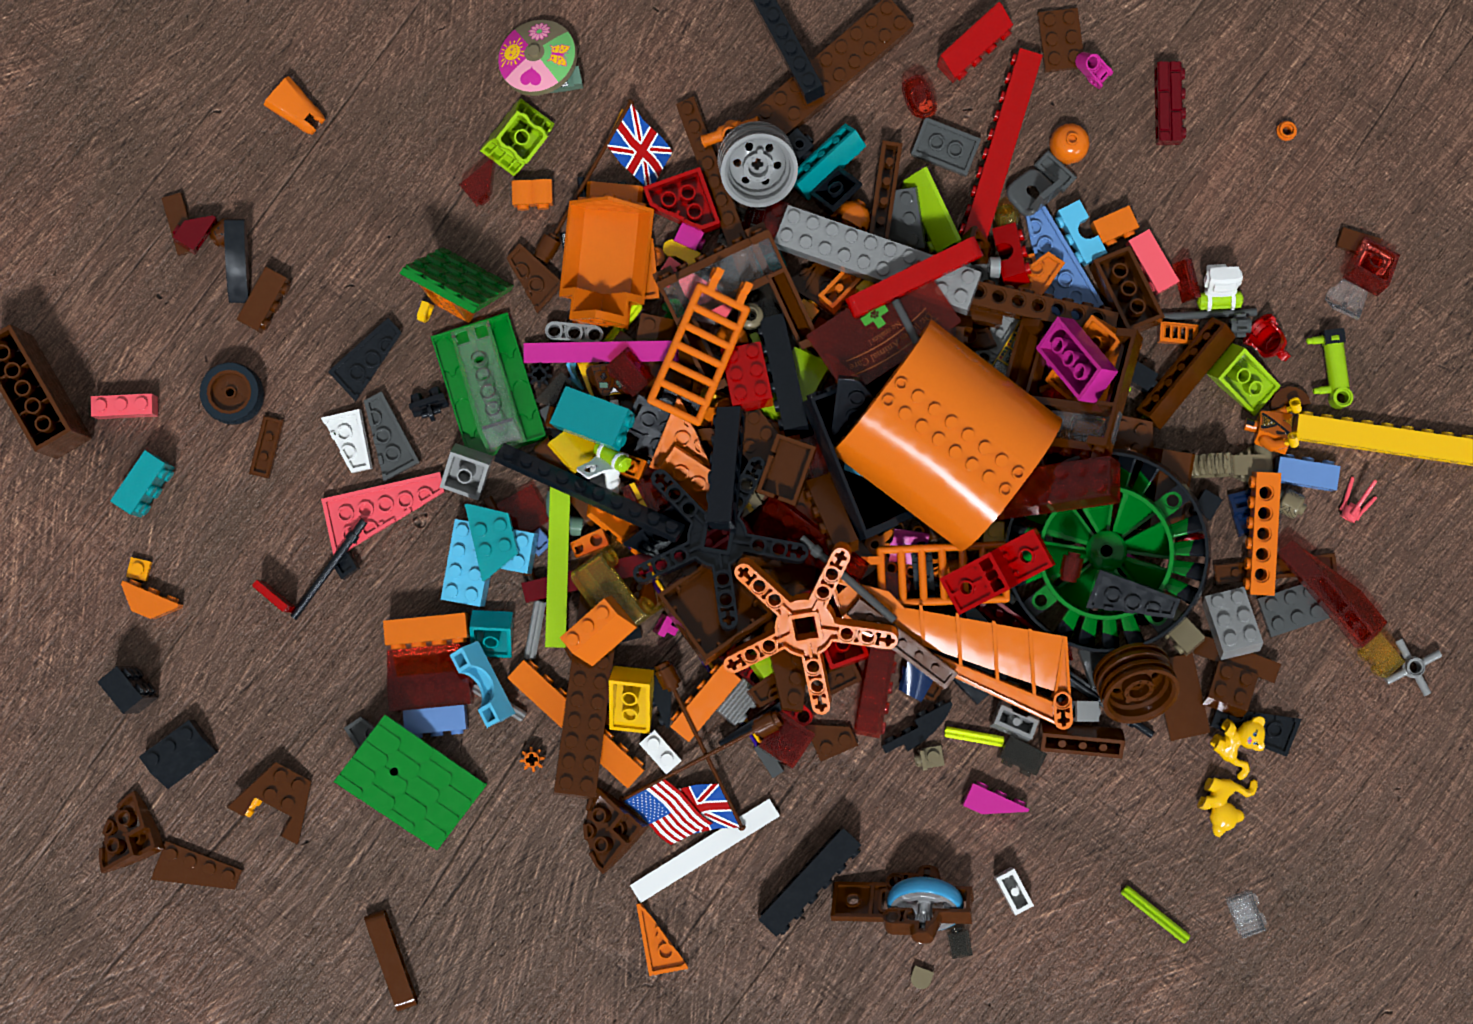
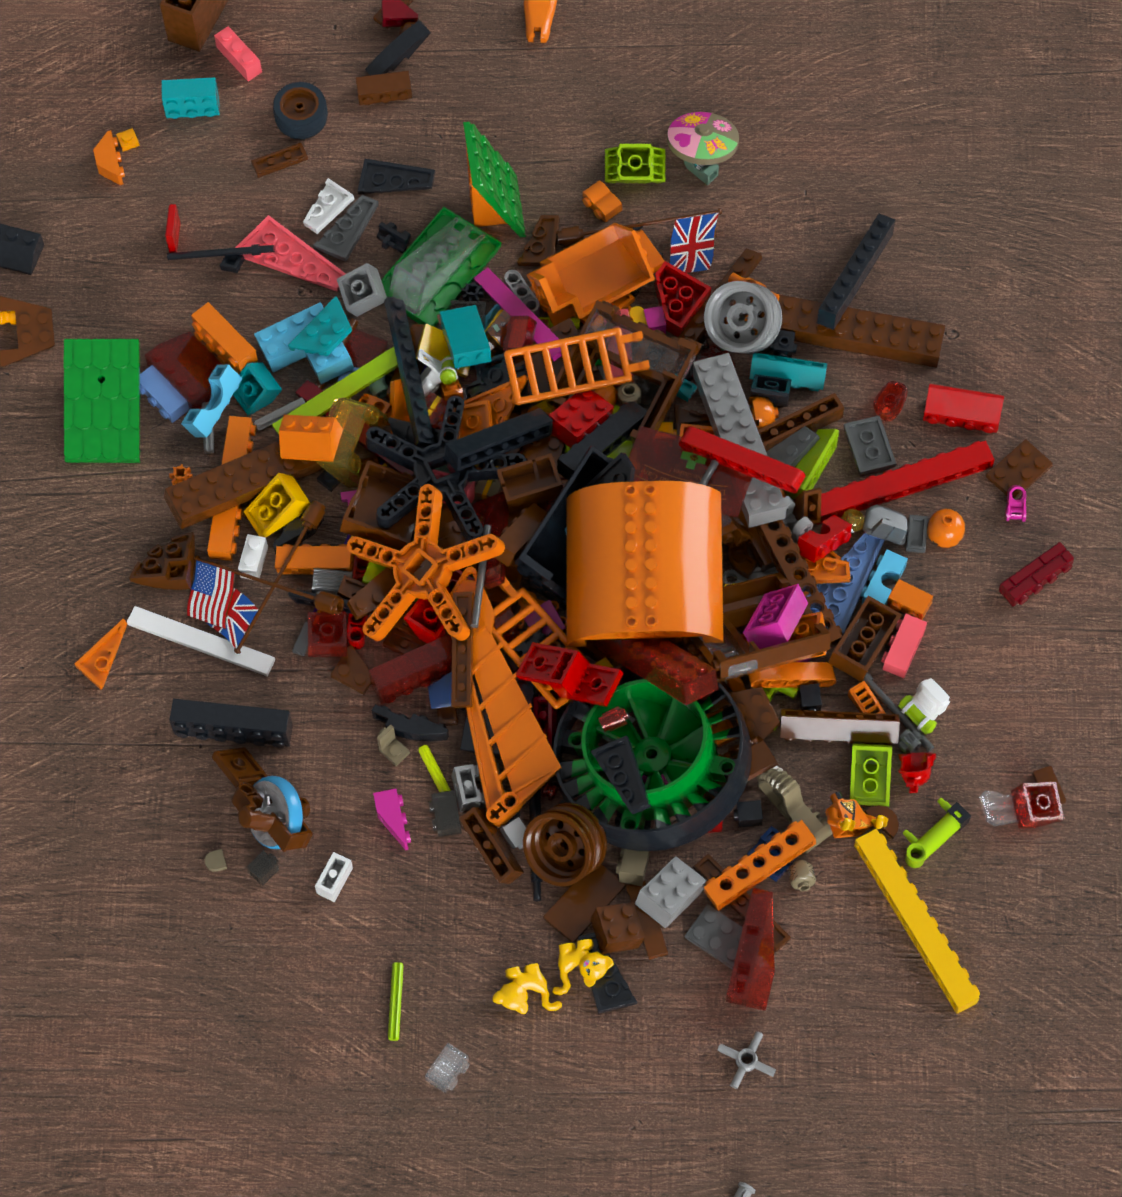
camera: 55 degrees right, 20 degrees down
(128, 689) = (34, 181): black brick -> none
(425, 311) = (458, 191): yellow tile -> none
(479, 184) = (581, 164): clear red slope -> none
(1187, 283) = (916, 675): clear red plate -> none
(1288, 125) = (1090, 669): orange plate -> none
(1307, 472) = (835, 870): medium blue brick -> none
(1353, 511) = (833, 925): coral plant -> none
(1381, 656) = (735, 1025): clear yellow brick -> none

